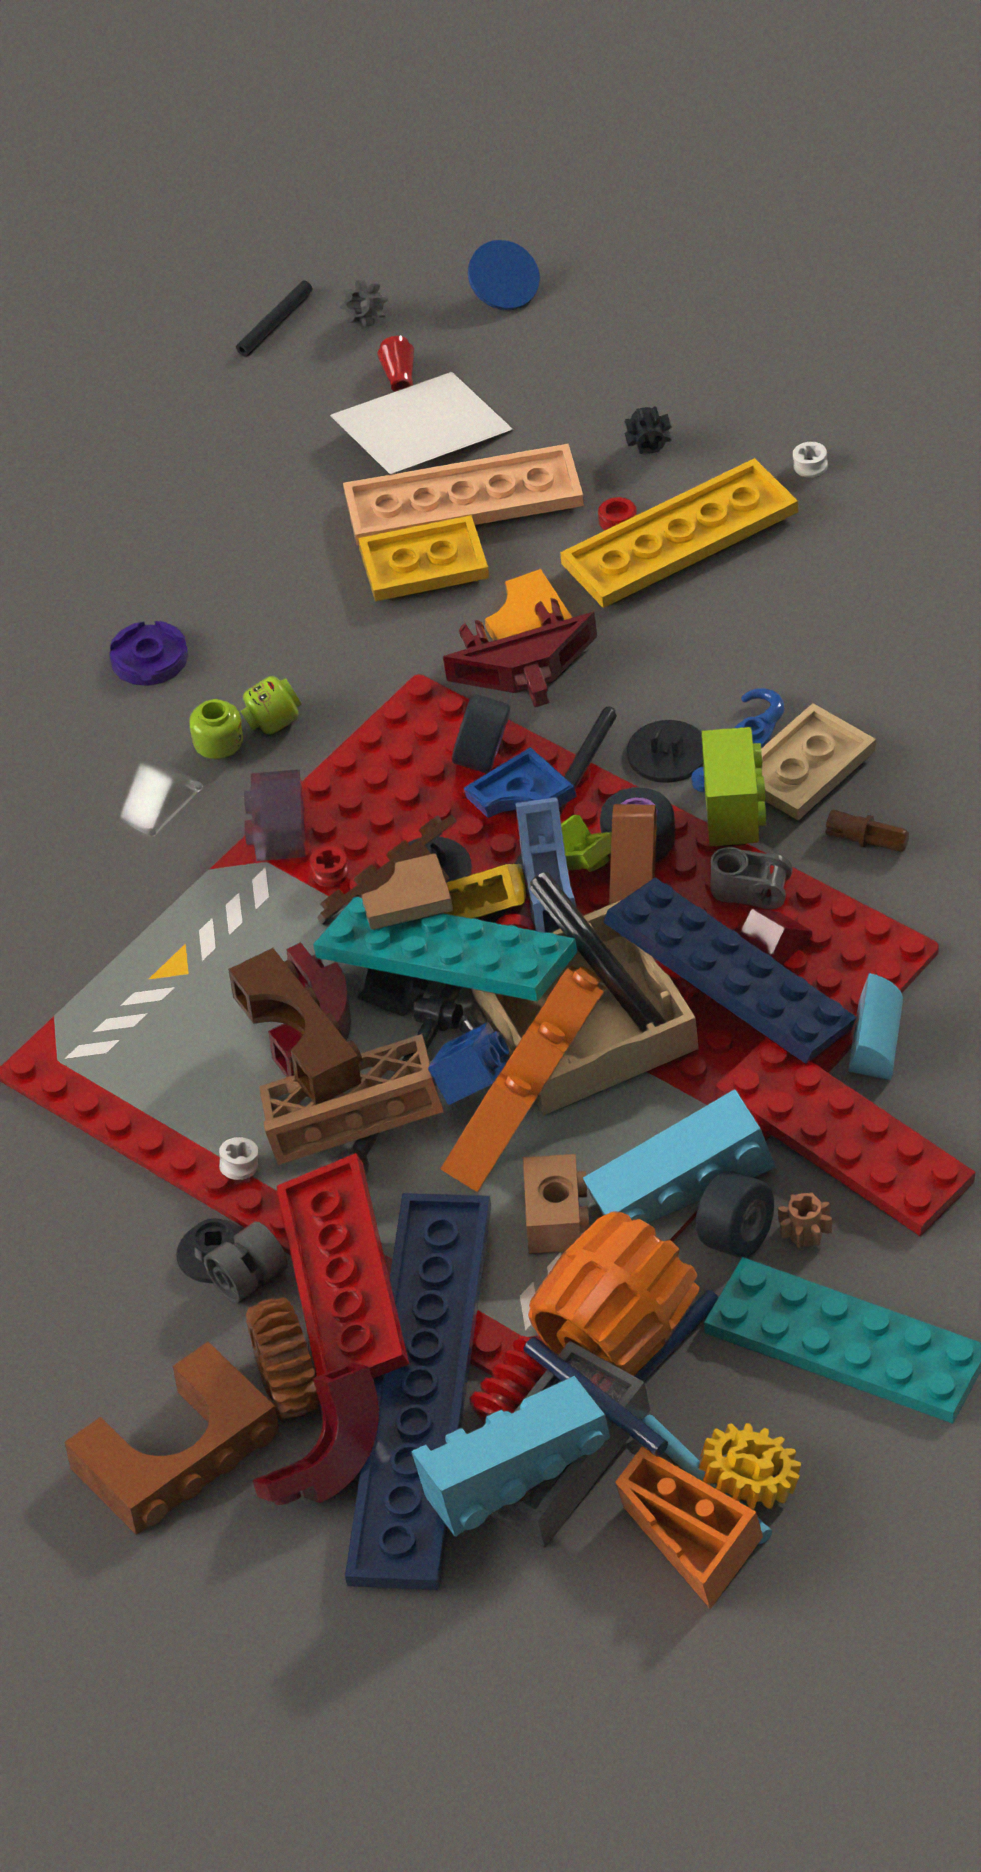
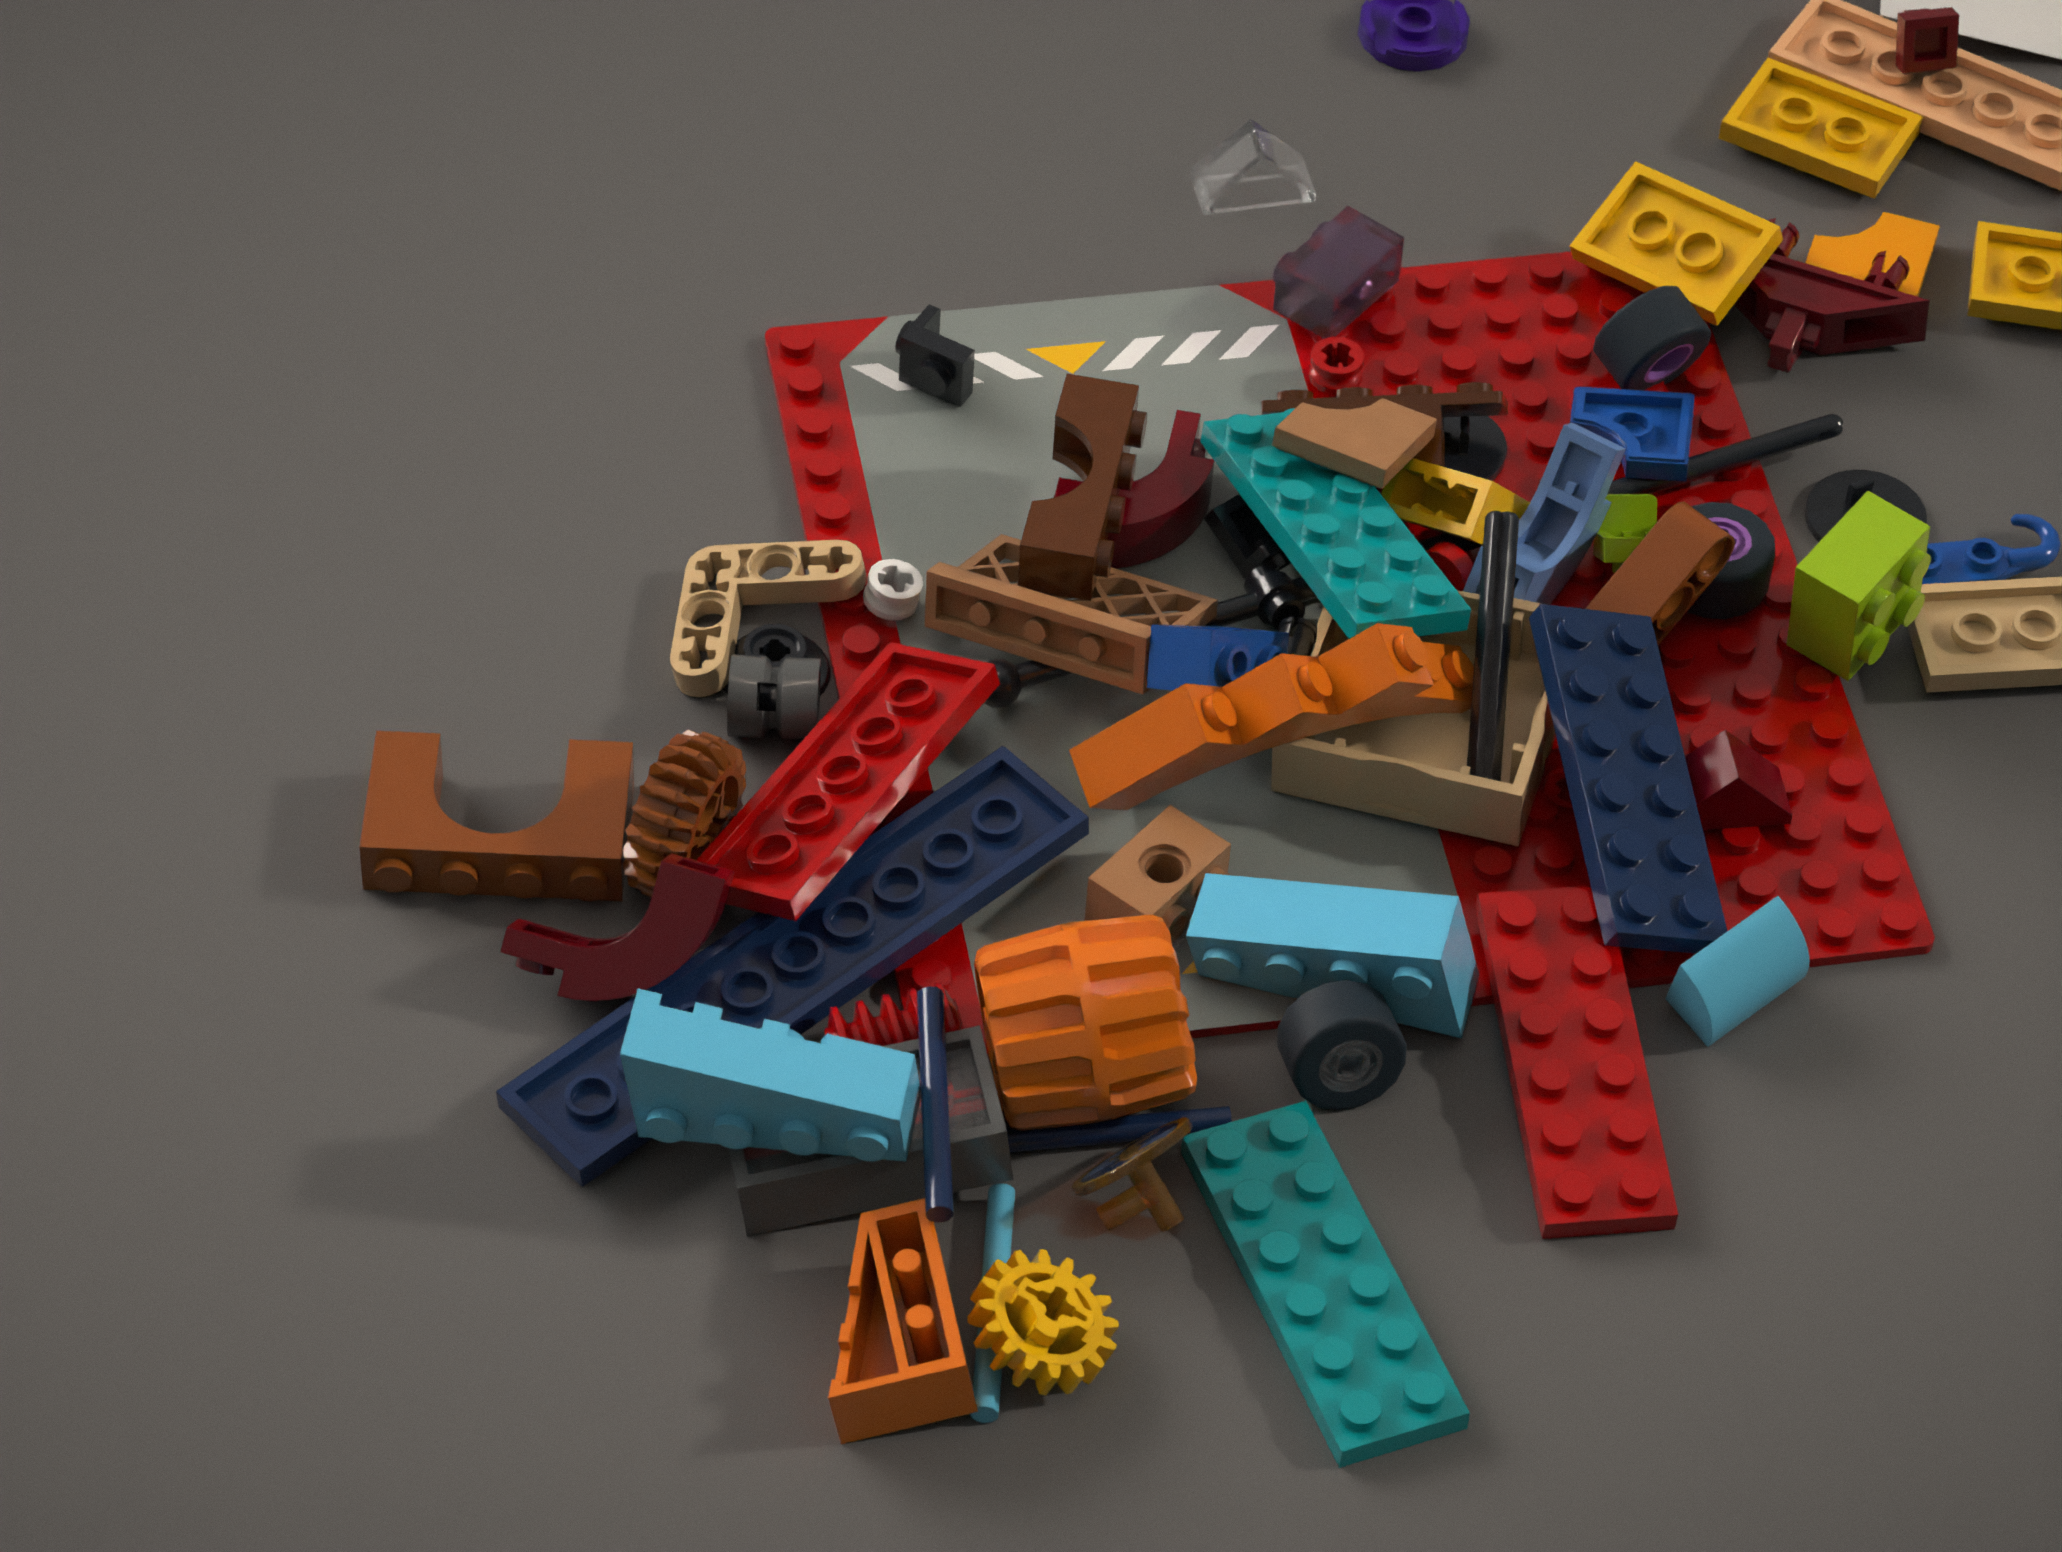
camera: 35 degrees right, 0 degrees up
(118, 1020) = (933, 361): none -> black bracket
(153, 1217) = (741, 583): none -> tan beam
(216, 729) = (1381, 144): lime head -> none
(270, 705) = (1472, 162): lime head -> none
(434, 671) = (1672, 234): none -> yellow plate
(436, 470) = (1927, 39): none -> dark red tile
(703, 1355) = (1147, 1188): none -> clear orange shield
(746, 877) = (1779, 703): dark grey piece -> none
(805, 1219) = (1419, 1114): nougat gear -> none
(866, 831) = (1989, 757): reddish brown axle -> none

